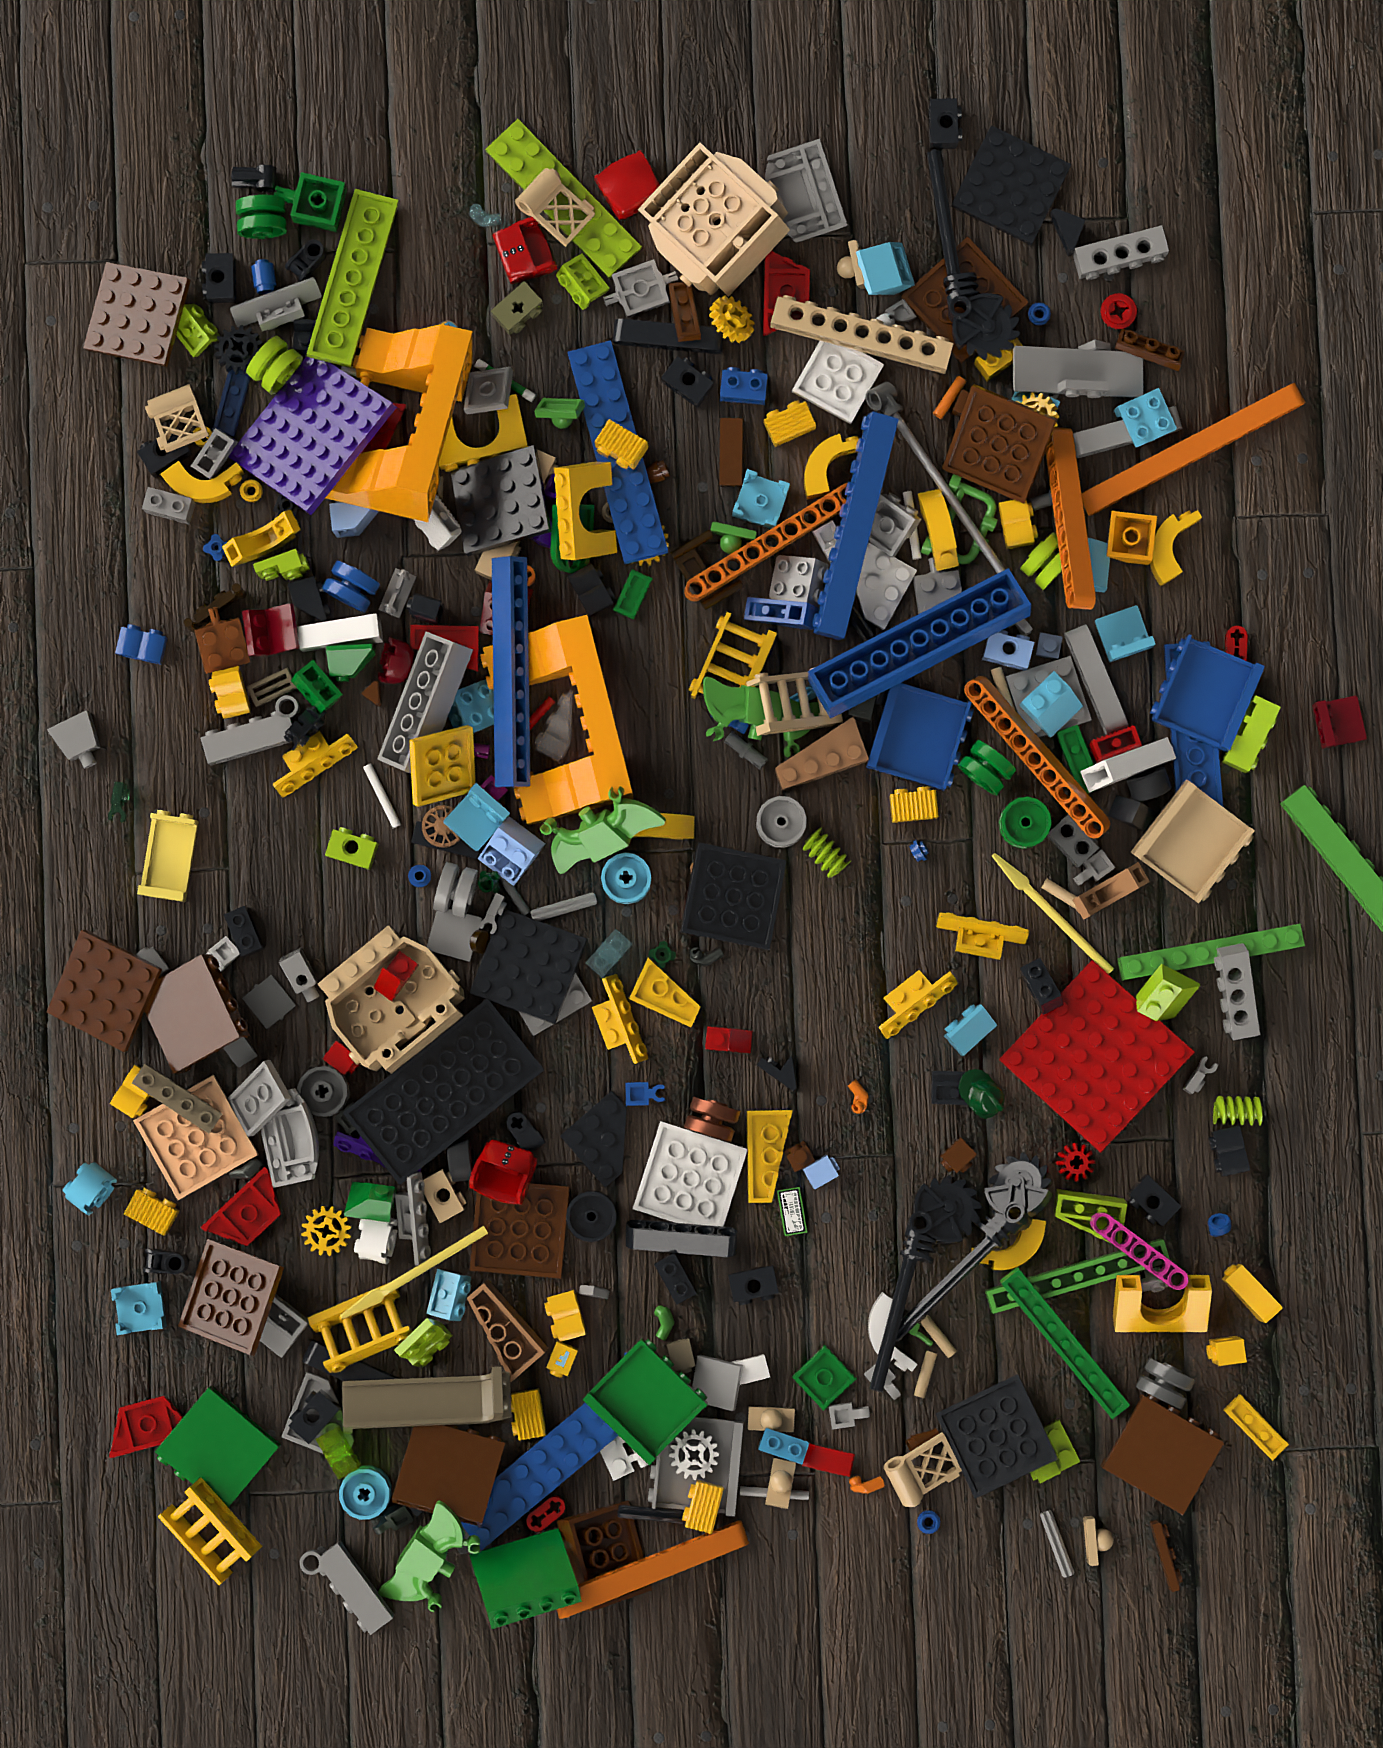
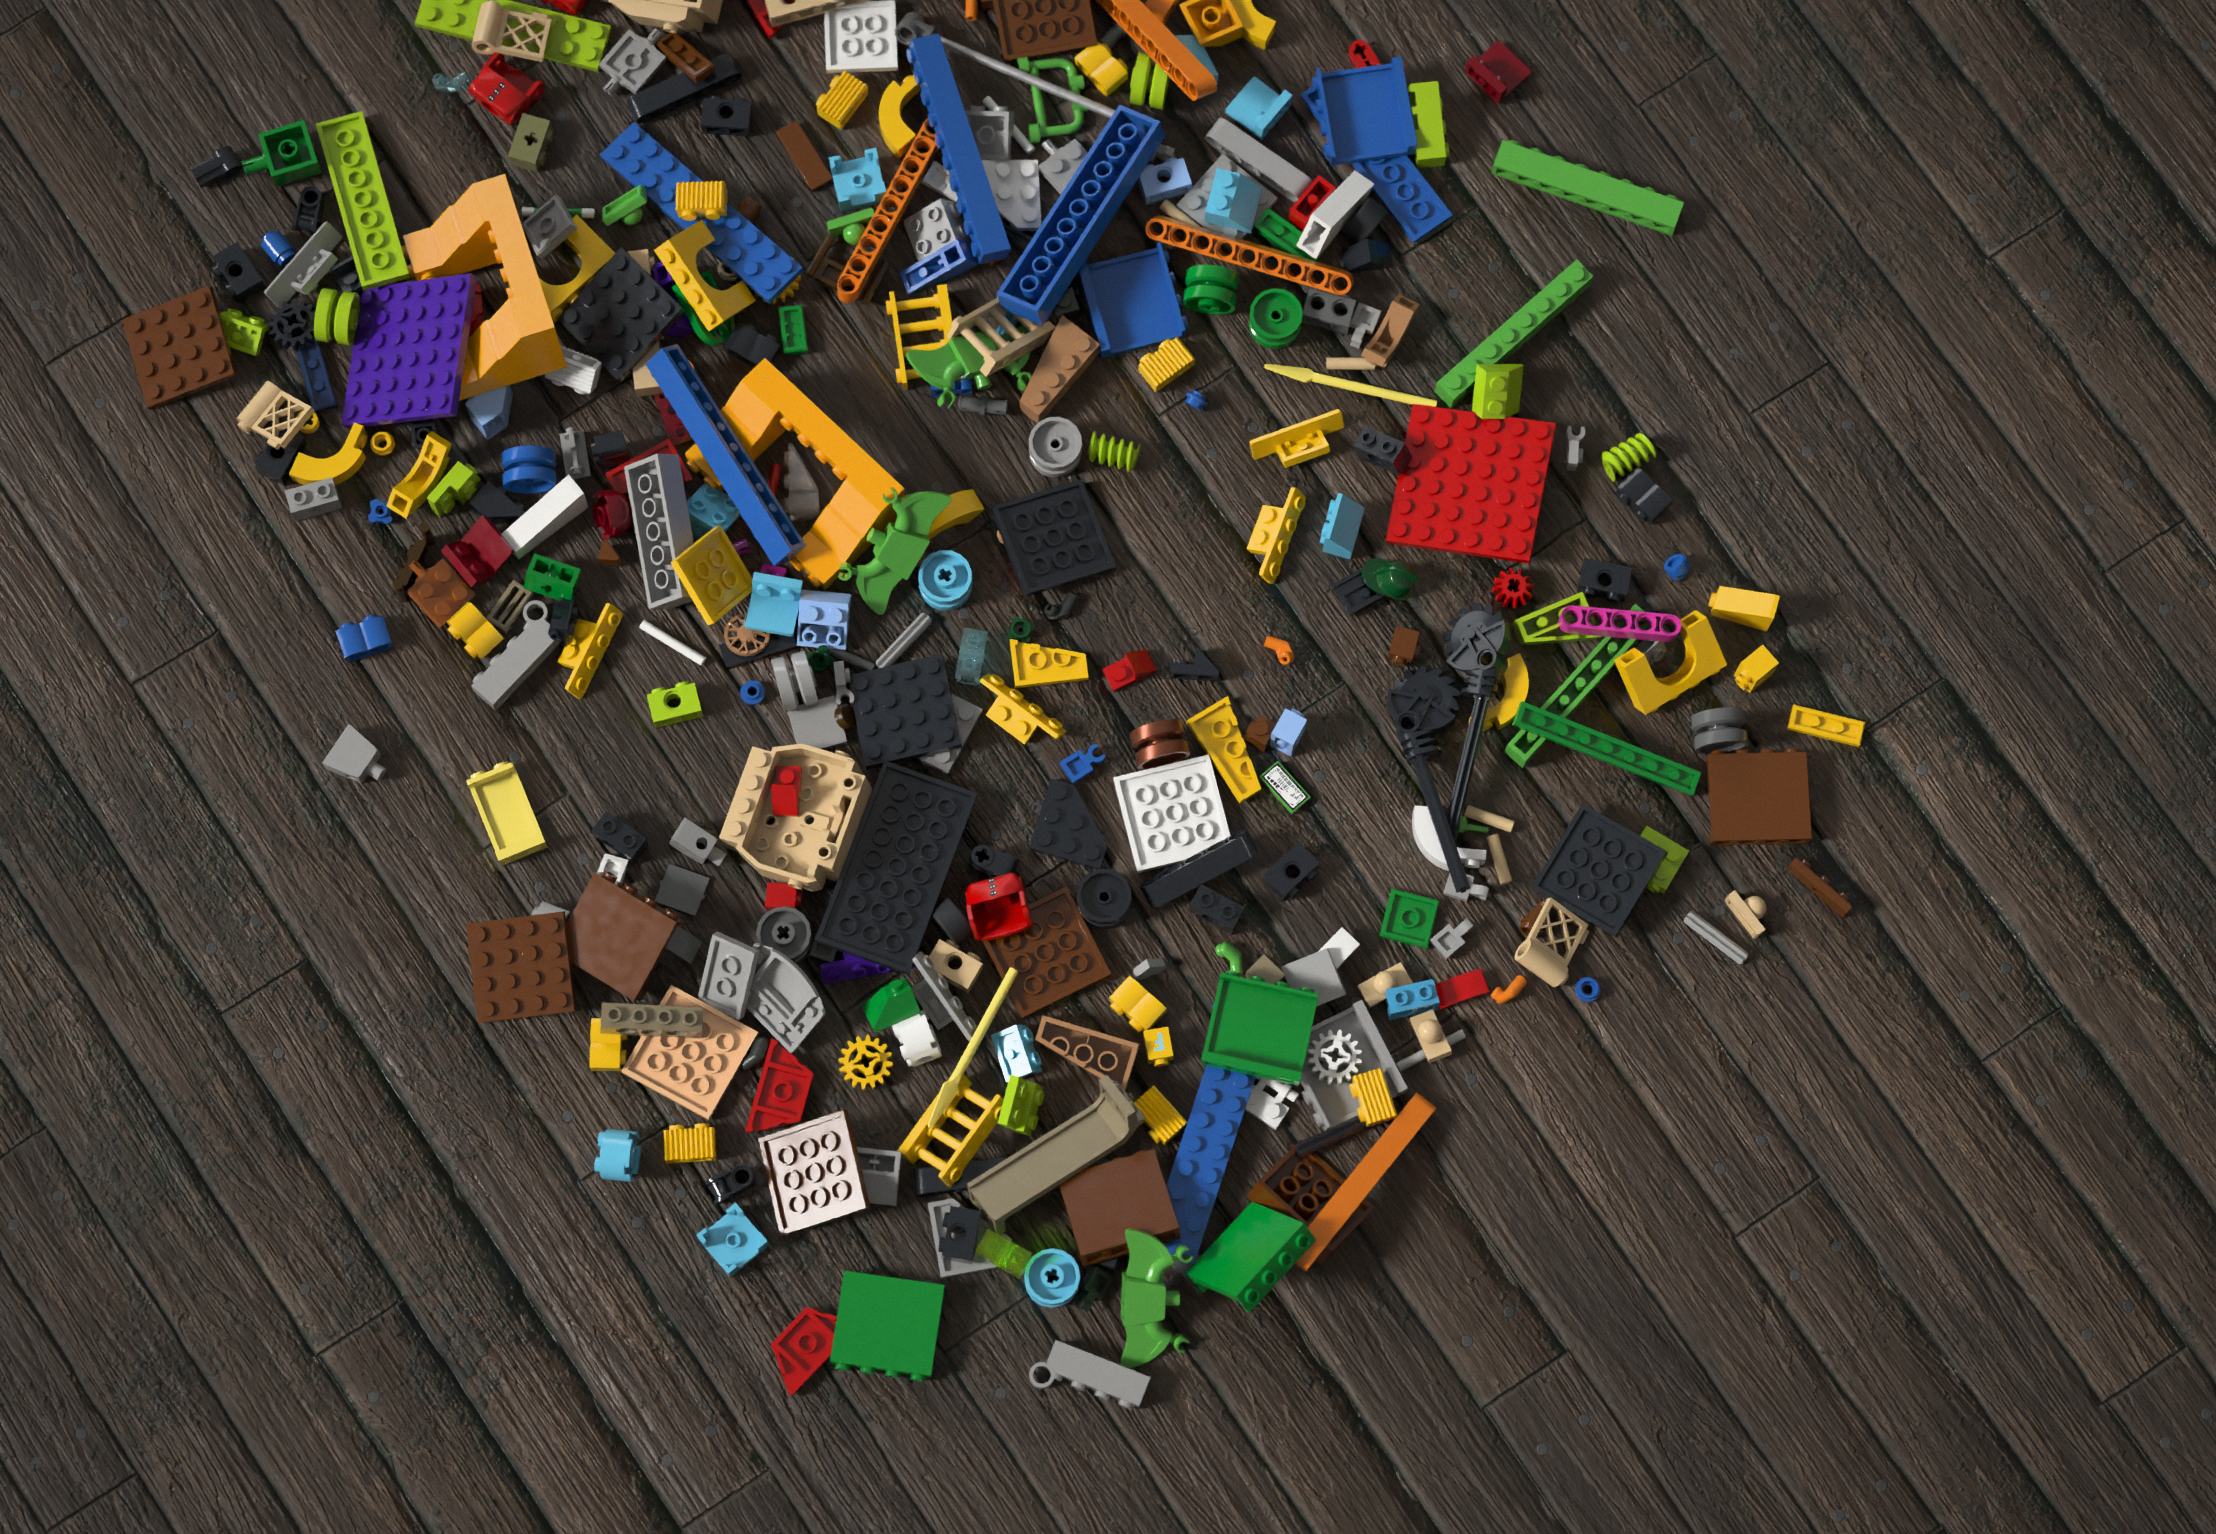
camera: 35 degrees left, 10 degrees down
(119, 796) = (427, 785): clear green plate -> none
(214, 453) = (328, 427): light grey brick -> none
(224, 1521) = (945, 1385): yellow fence -> none
(261, 216) = (244, 194): green wheel -> none
(348, 660) = (567, 535): slope -> none
(549, 1518) = (1226, 1195): red beam -> none
(581, 281) = (574, 86): lime bracket -> none
(731, 319) = (733, 38): yellow gear -> none
(743, 386) = (780, 92): blue brick -> none
(940, 529) = (1039, 110): yellow arch -> none
(1048, 646) = (1198, 157): sand blue plate -> none
(1193, 842) = (1436, 247): tan panel -> none
(1246, 1024) = (1586, 375): light grey brick -> none

